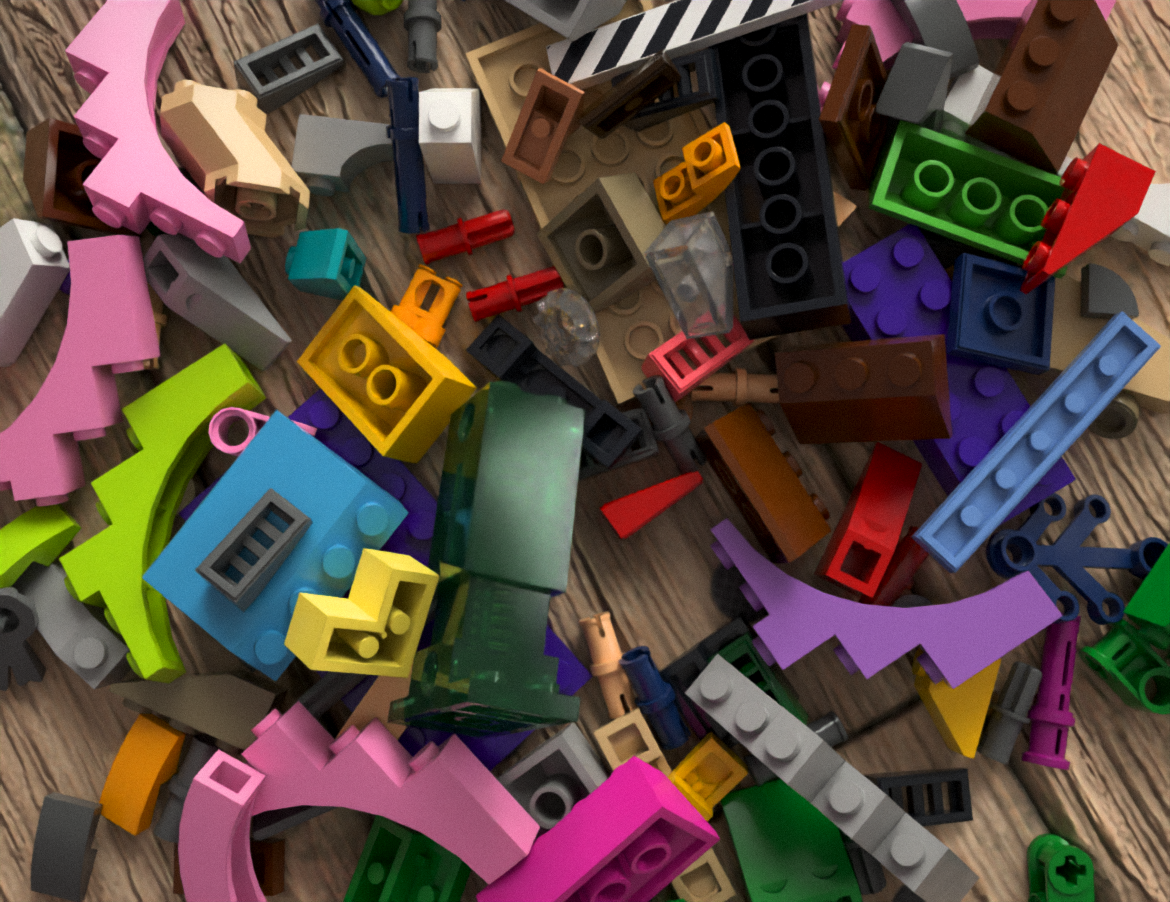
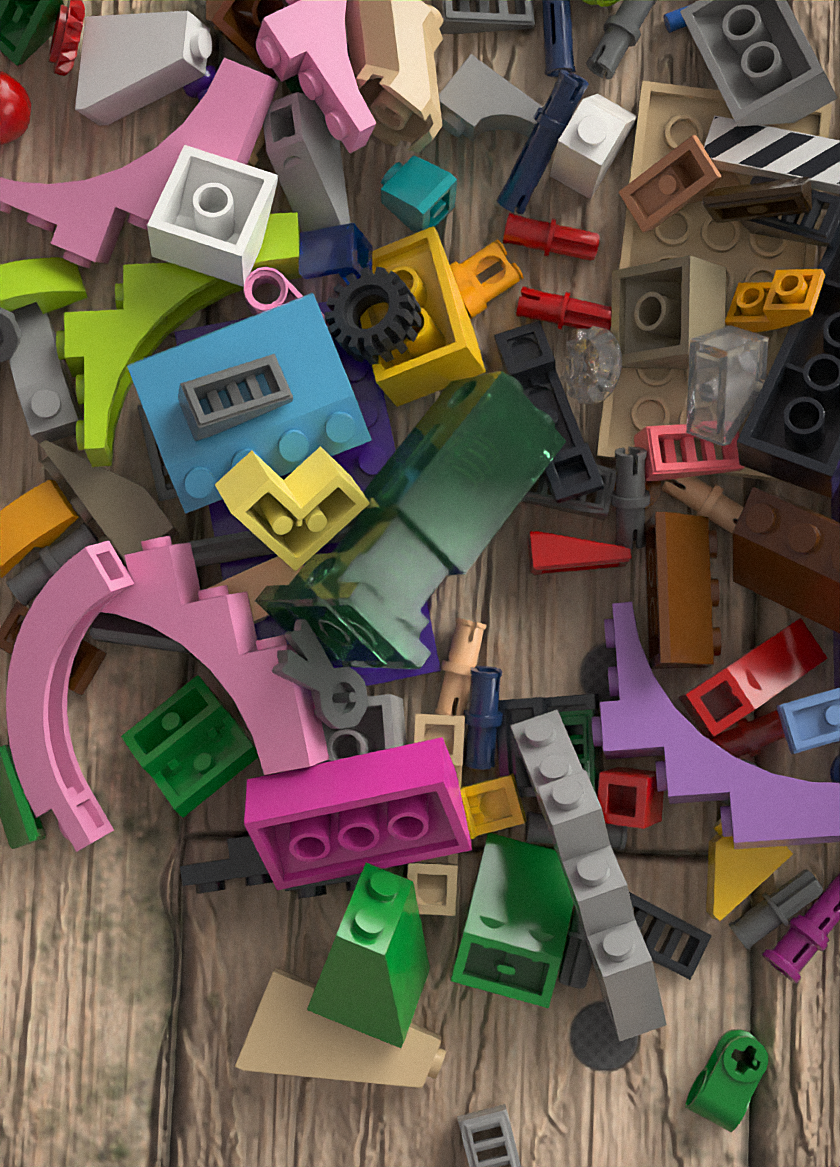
camera: 30 degrees right, 0 degrees up
(141, 392) = (212, 215): none -> white slope
(282, 356) = (334, 251): none -> clear blue panel
(322, 392) = (360, 296): none -> black tyre
(512, 767) = (336, 692): none -> dark grey piece
(827, 694) = (630, 797): none -> red brick

